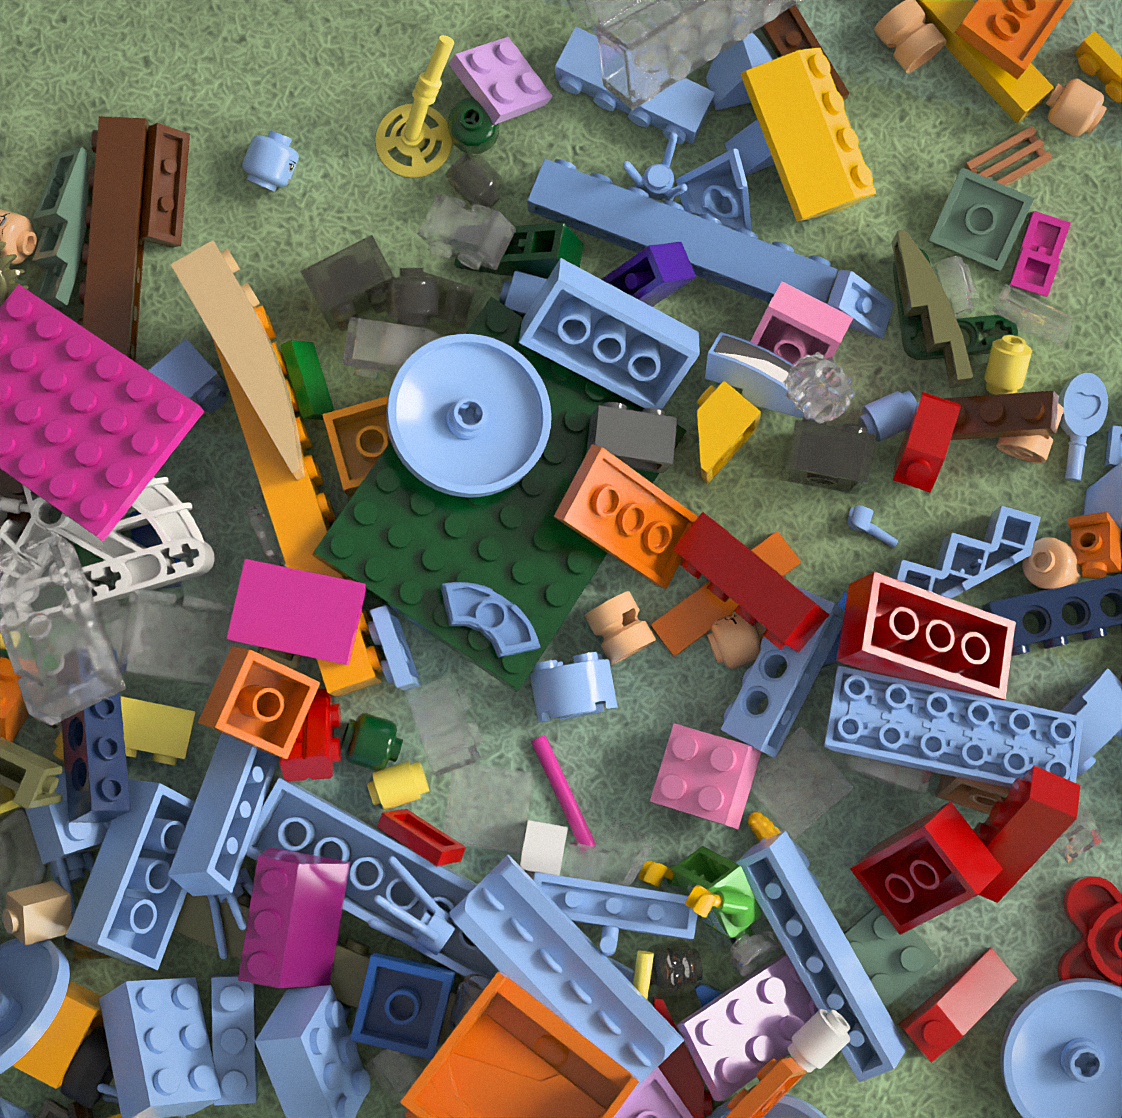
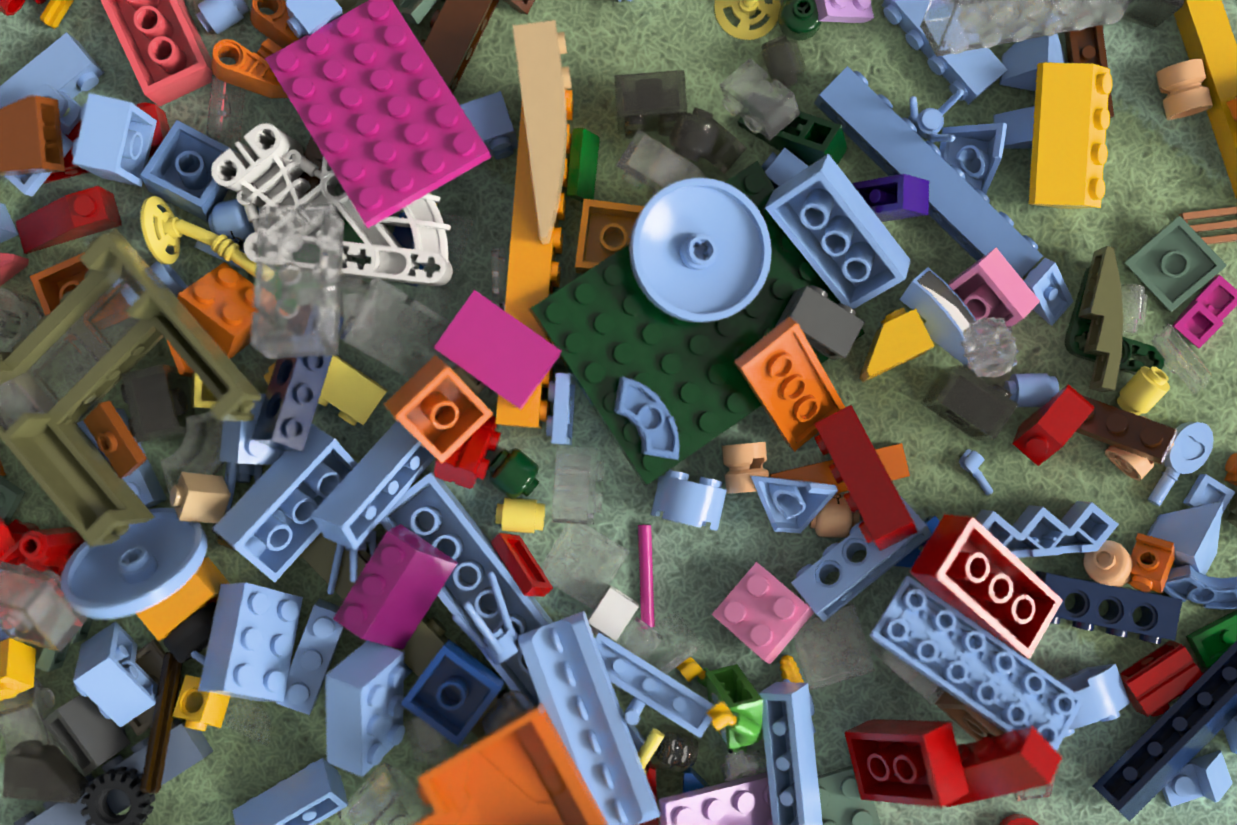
camera: 20 degrees right, 5 degrees up
(685, 642) = (792, 502): none -> light blue slope

